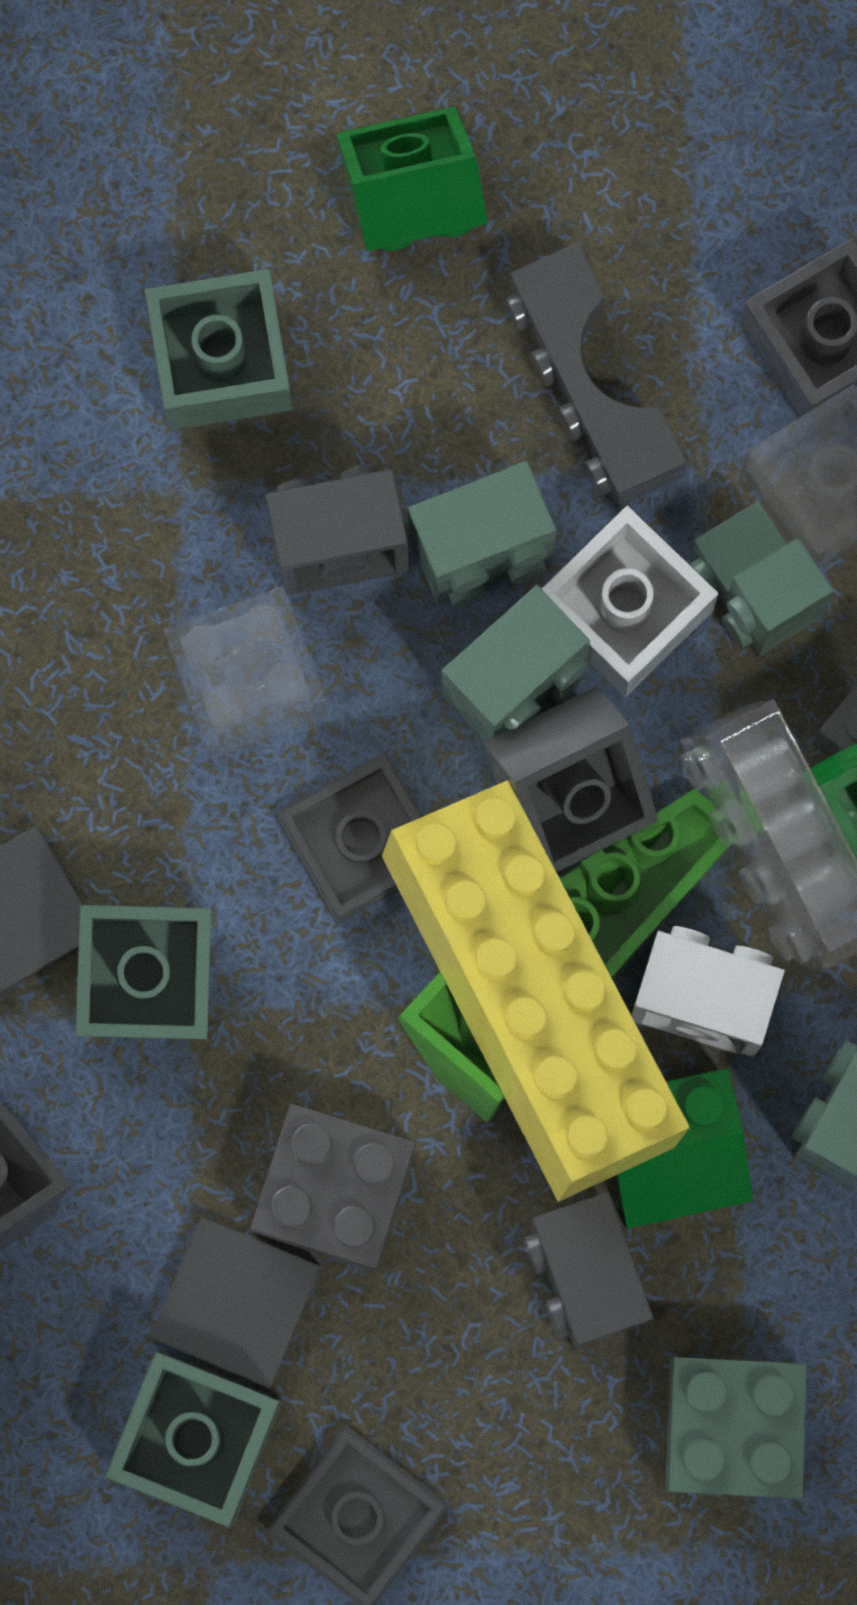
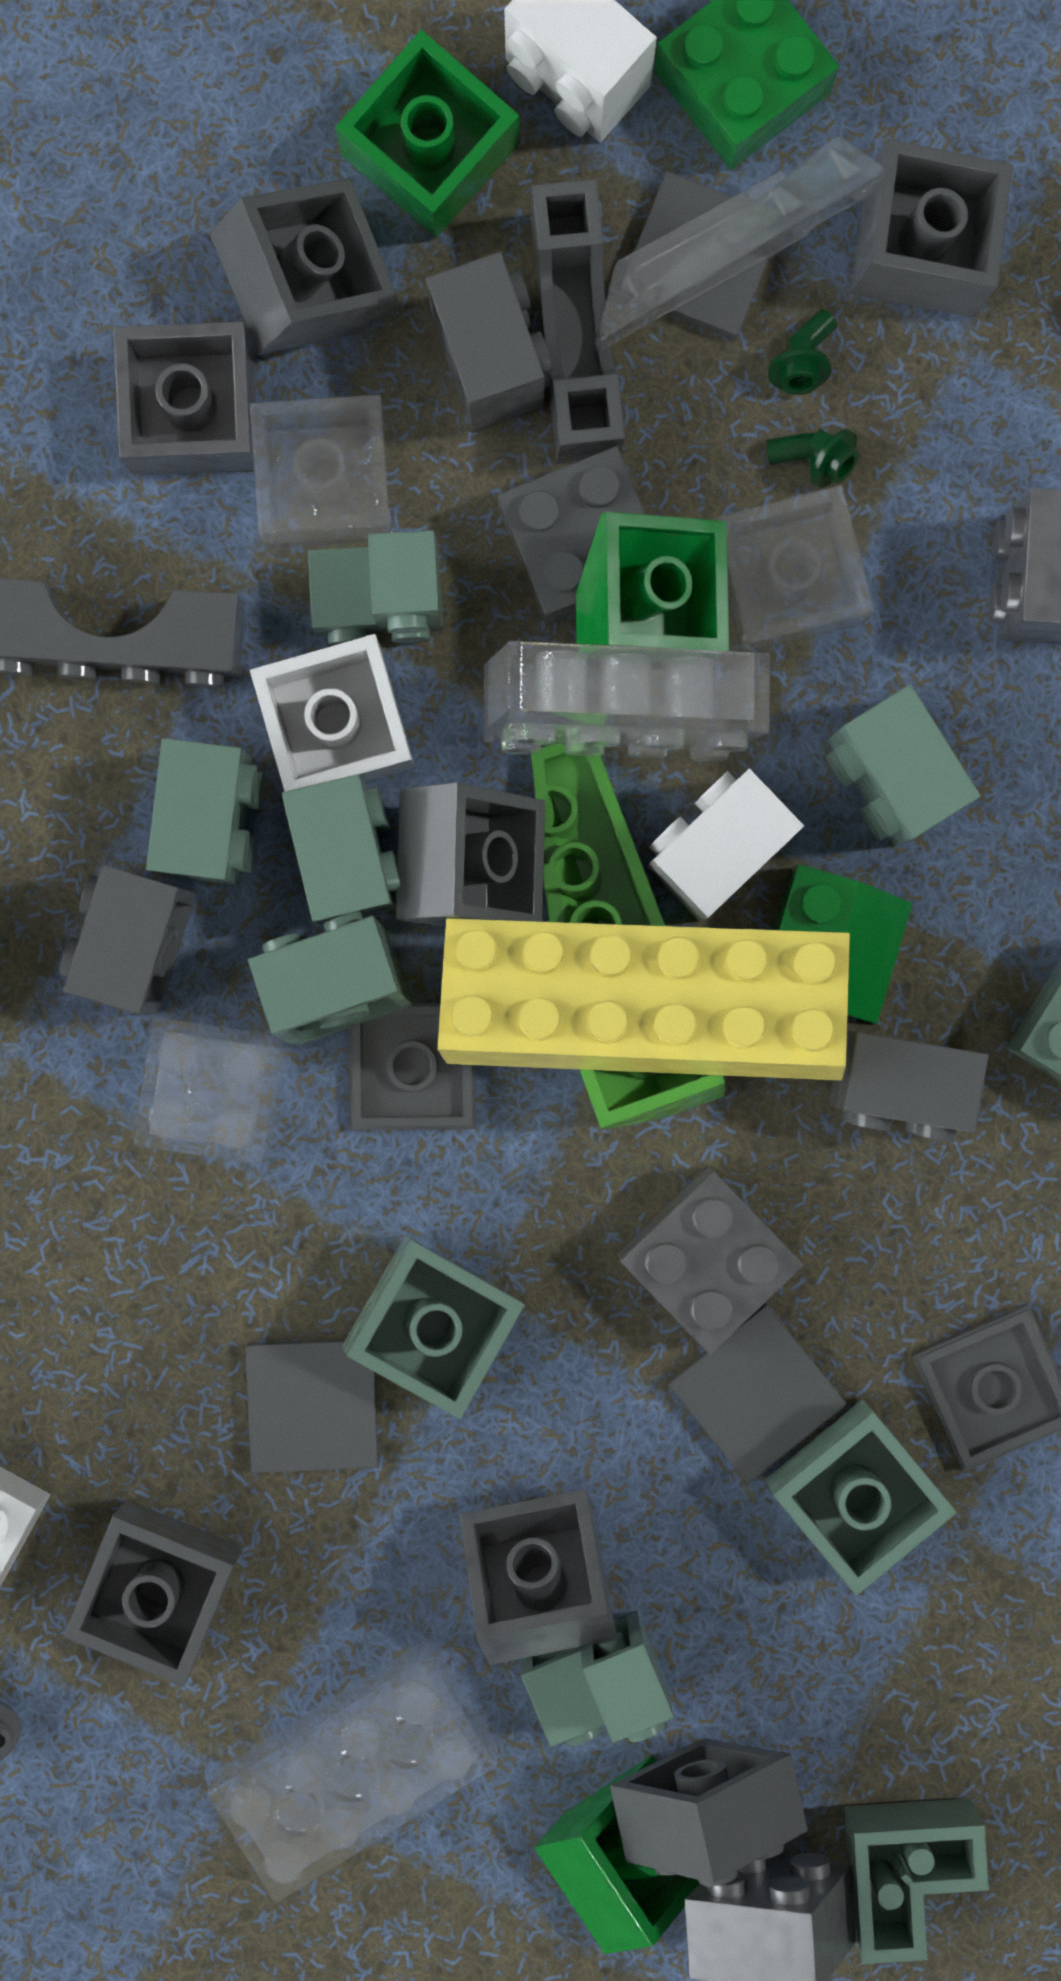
camera: 65 degrees left, 10 degrees up
(398, 719) = (329, 979): none -> sand green brick

